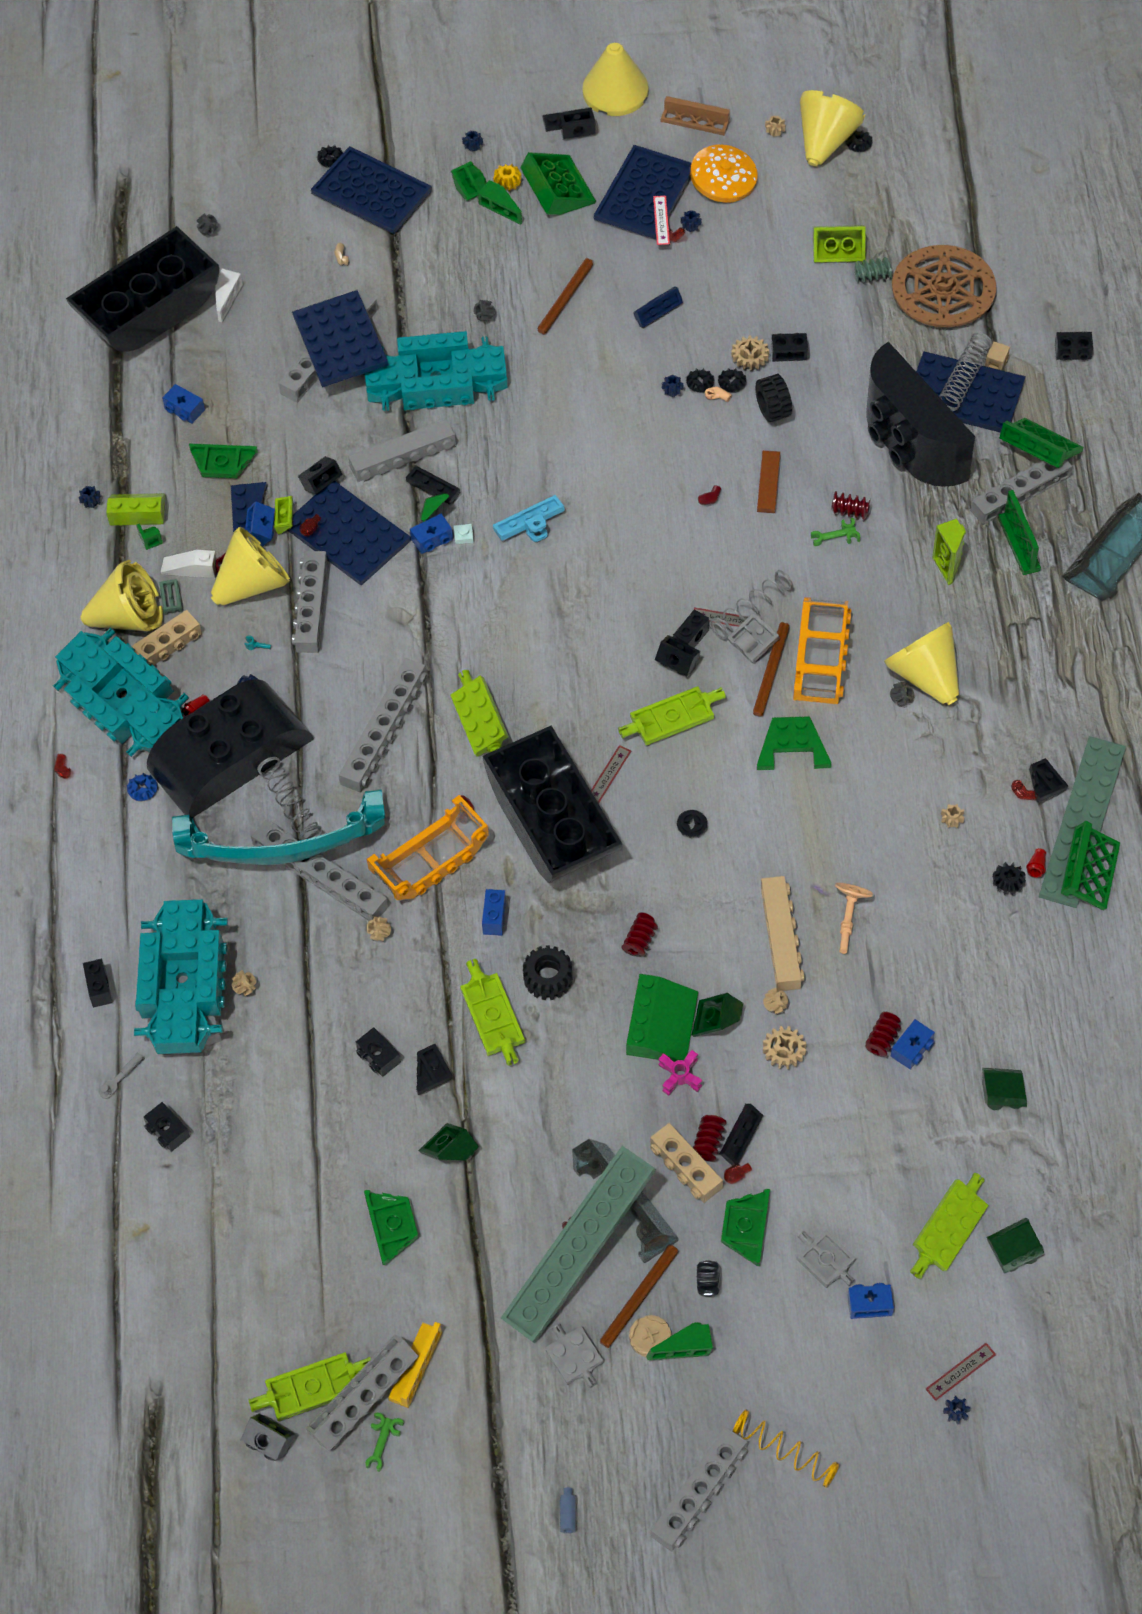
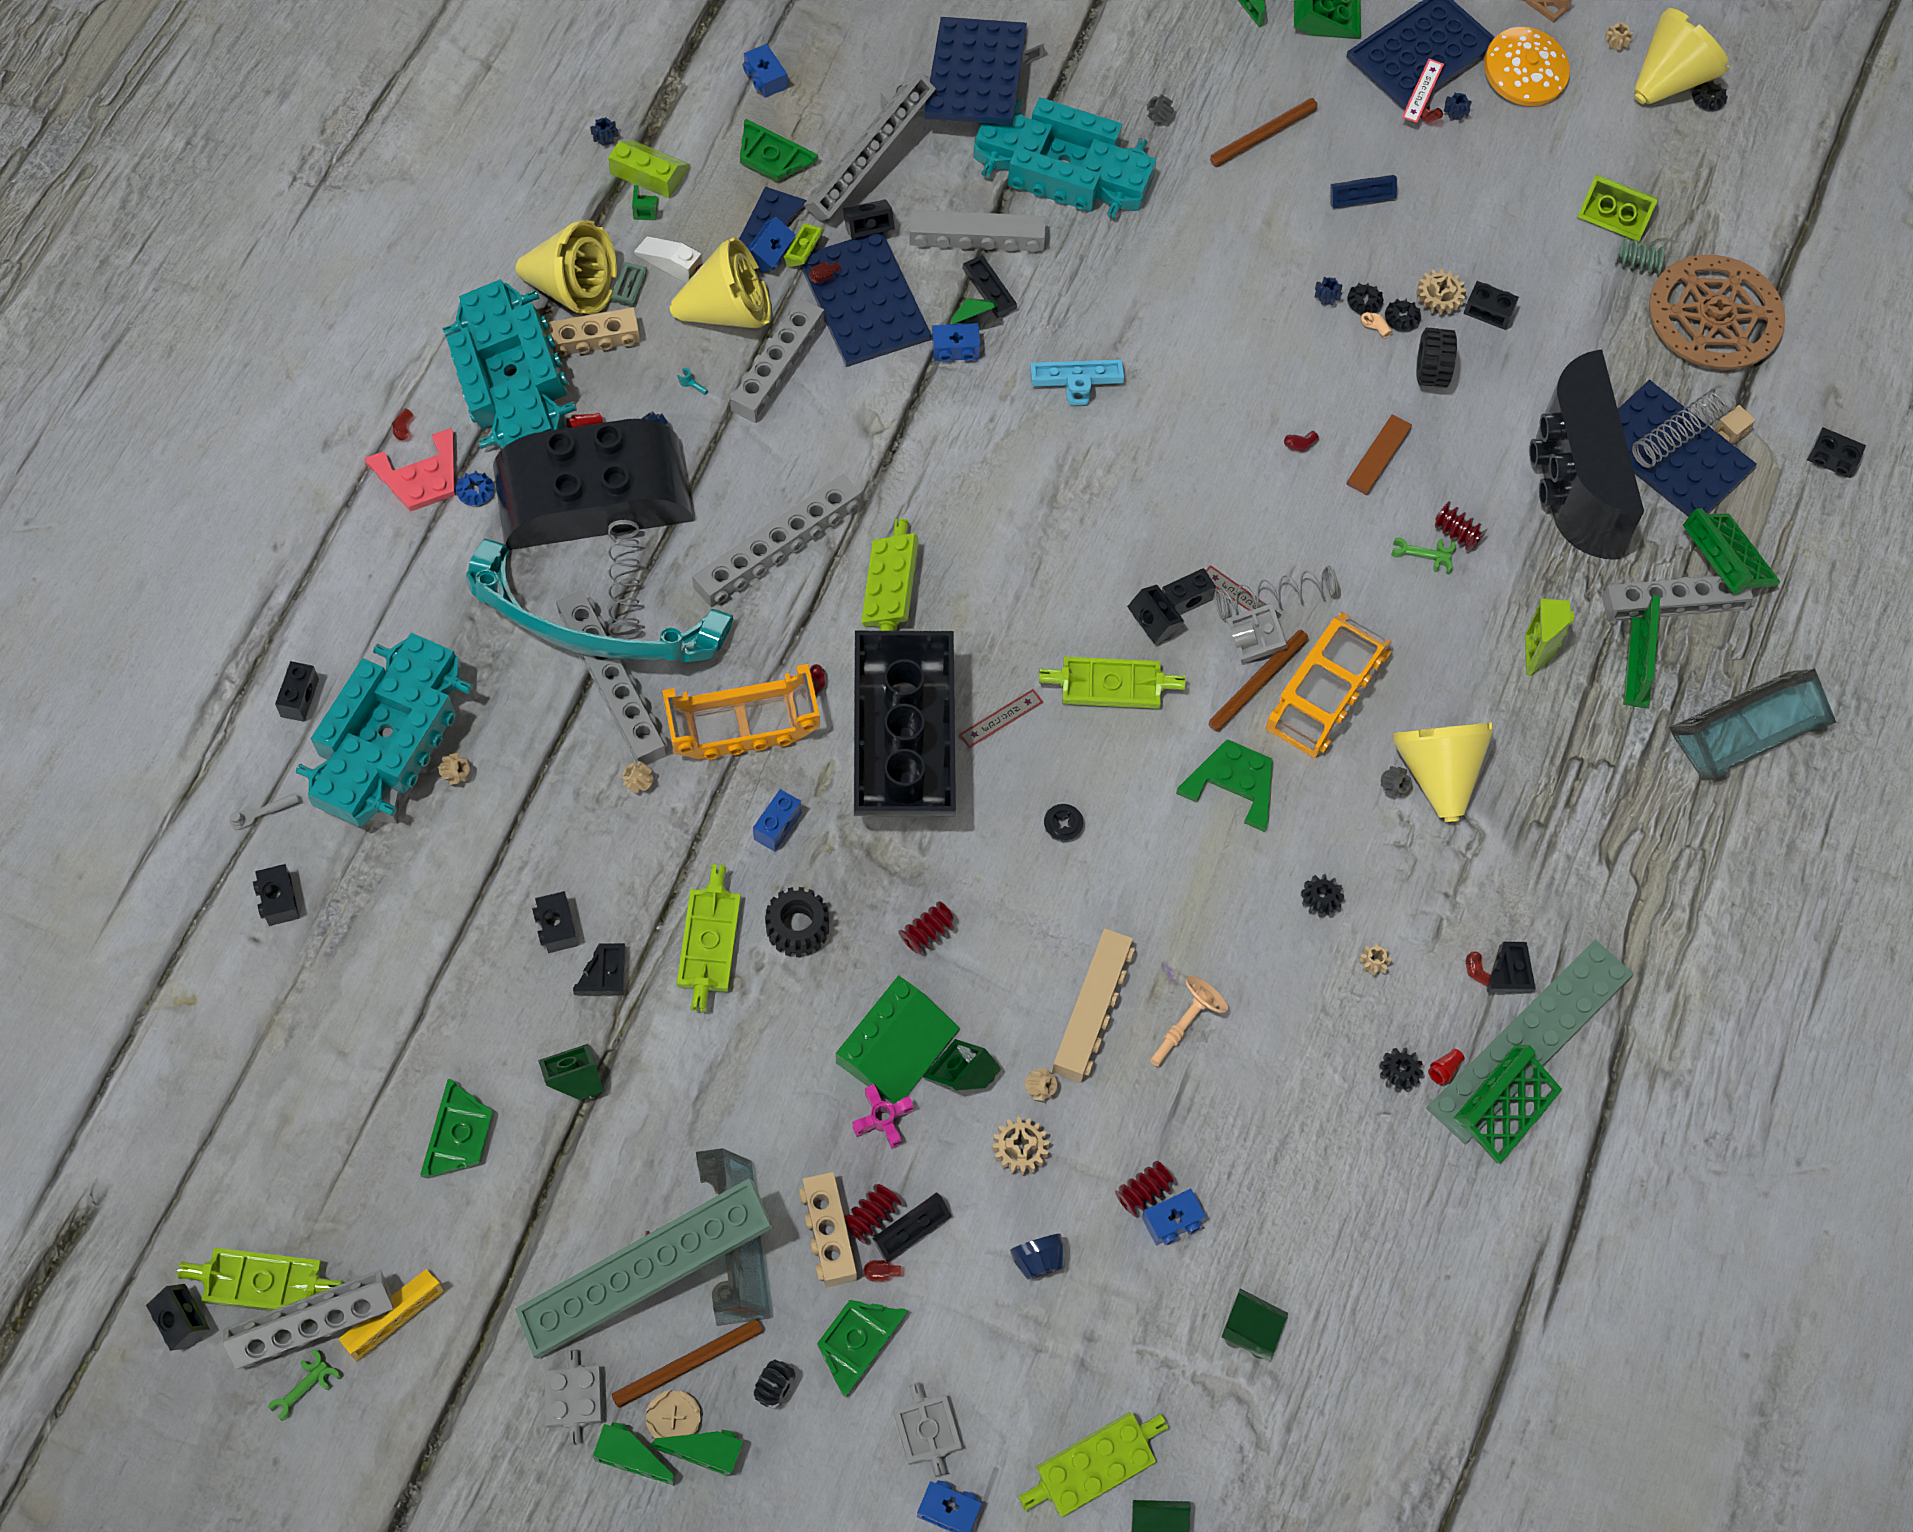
camera: 20 degrees right, 5 degrees up
(100, 799) = (422, 481): none -> coral wing
(294, 424) = (869, 147): none -> light grey brick
(463, 534) = (993, 358): light aqua plate -> none
(634, 1372) = (624, 1451): none -> green slope
(839, 1110) = (1040, 1256): none -> dark blue piece
(894, 790) = (1331, 892): none -> black gear

